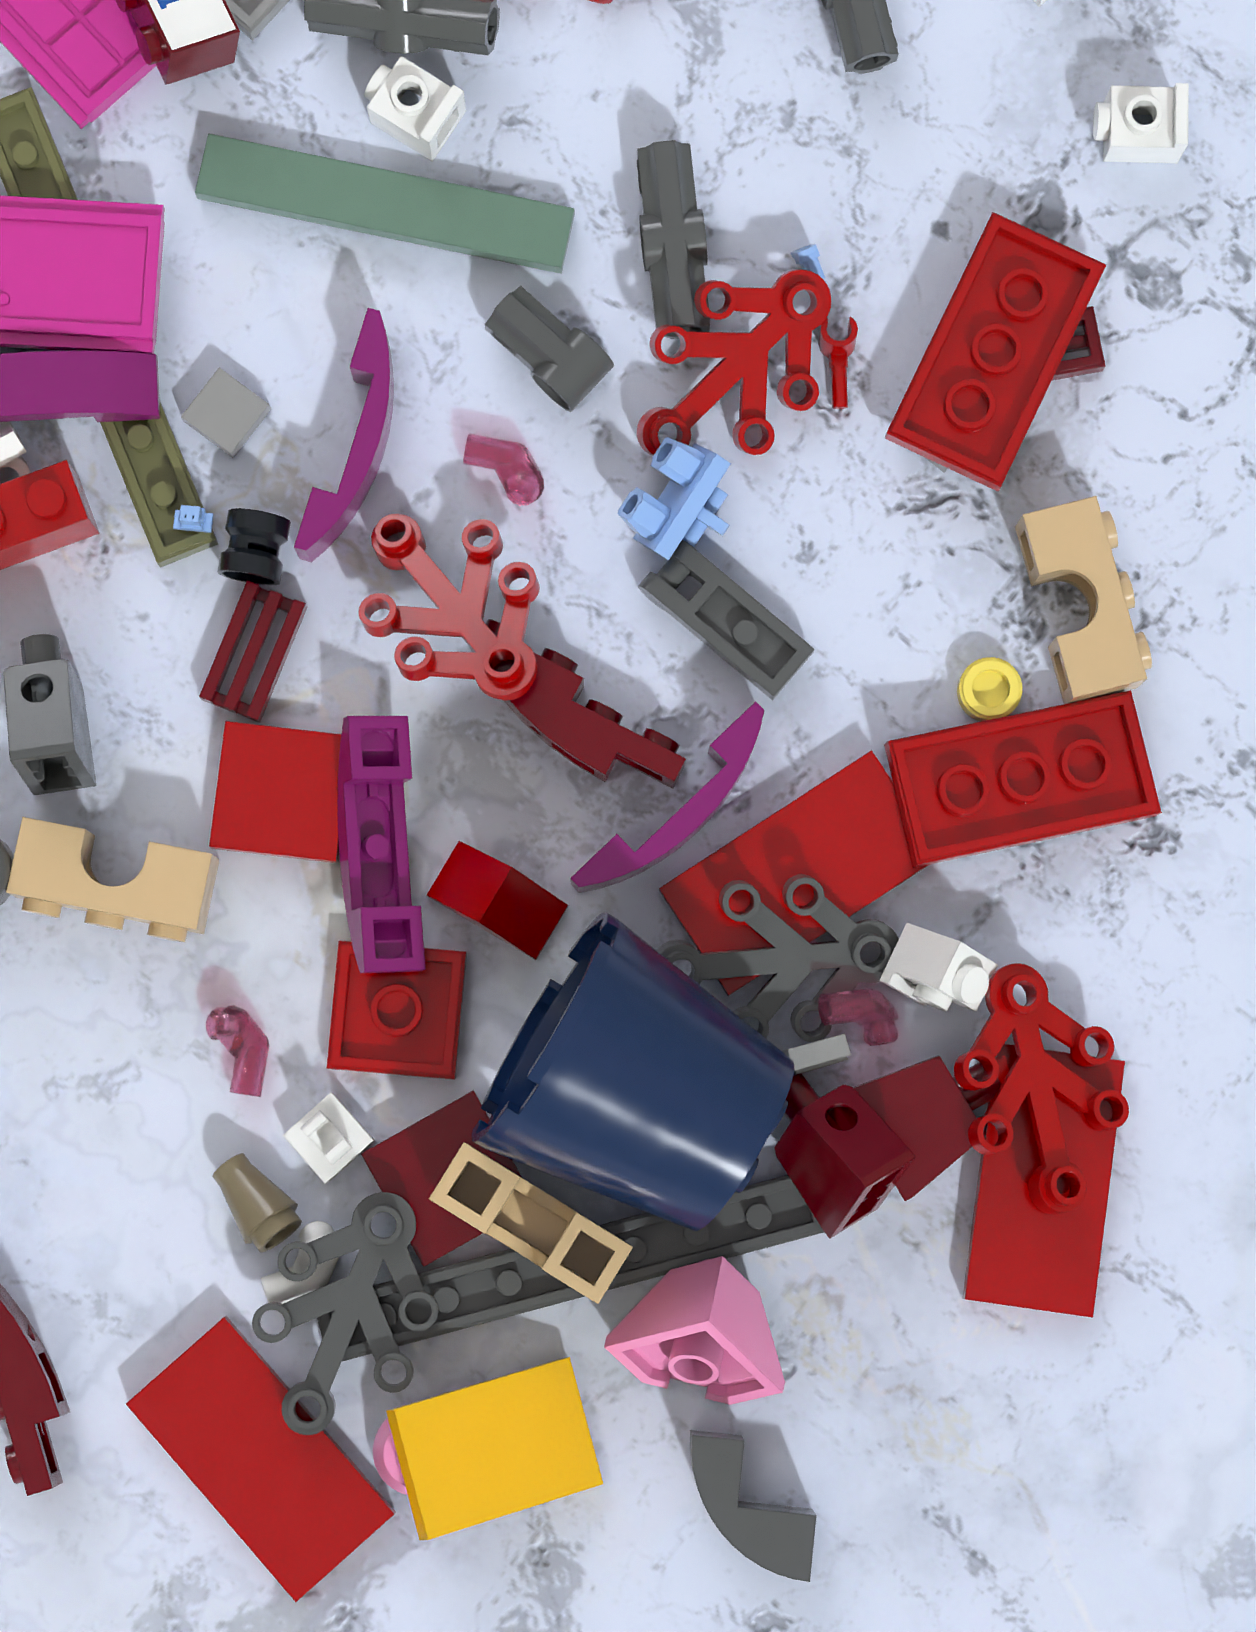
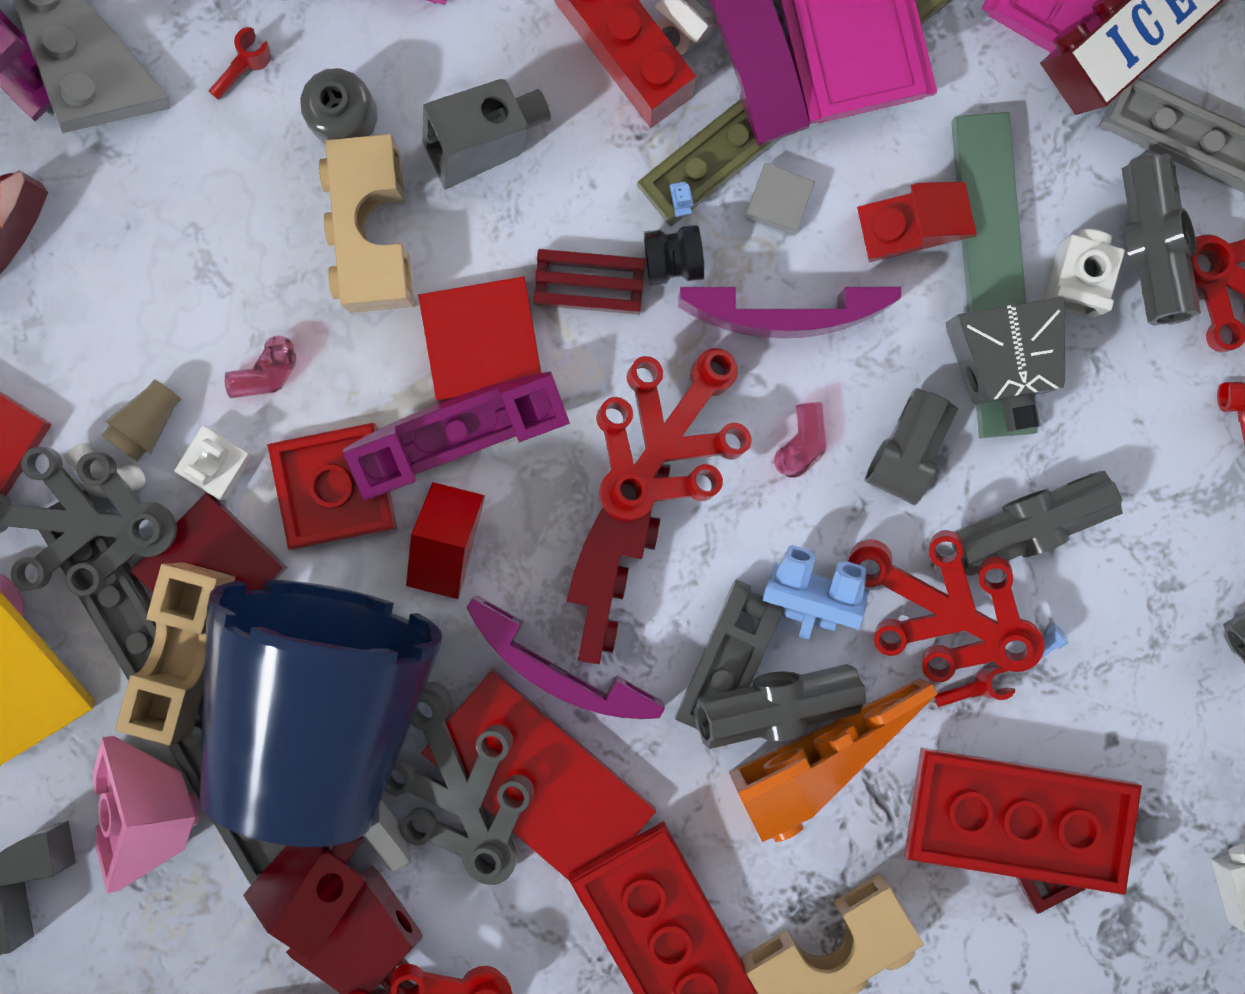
camera: 75 degrees right, 5 degrees up
(298, 269) = (918, 220): none -> red slope
(481, 211) = (1012, 356): none -> dark grey torso
(790, 576) = (779, 706): none -> dark grey piece
(866, 1008) = (440, 866): clear pink arm -> none
(876, 572) = (809, 771): none -> orange wedge
(937, 970) = (486, 924): white brick -> none
(989, 689) = (736, 892): light yellow tile -> none

